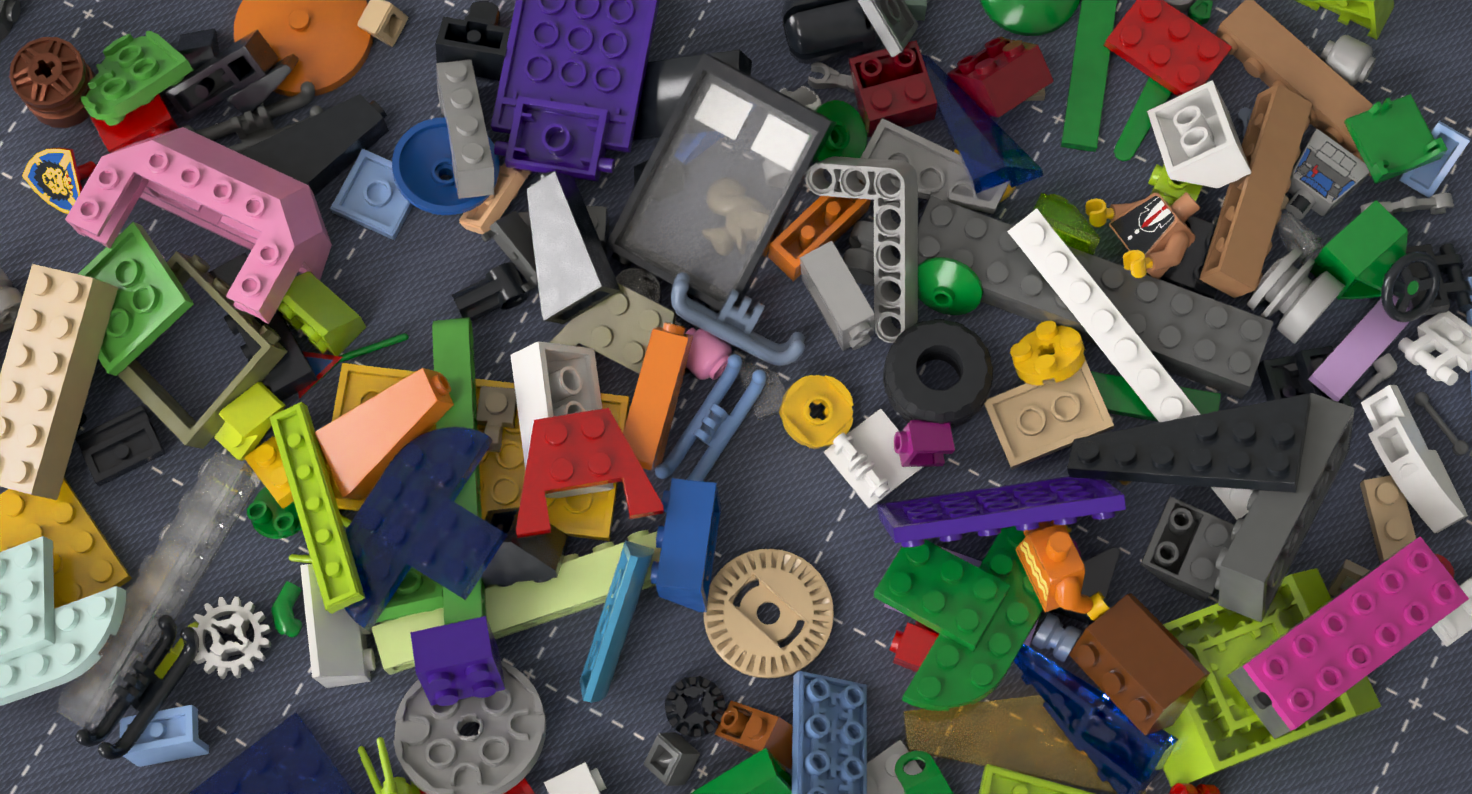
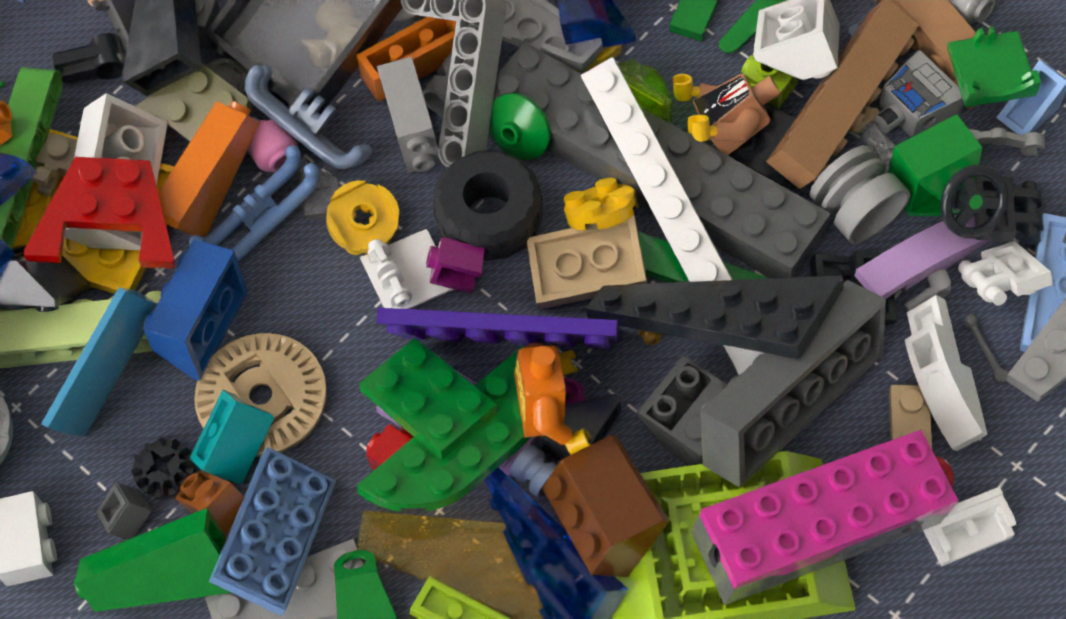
camera: 15 degrees right, 10 degrees down
(756, 666) = (231, 438): none -> teal panel

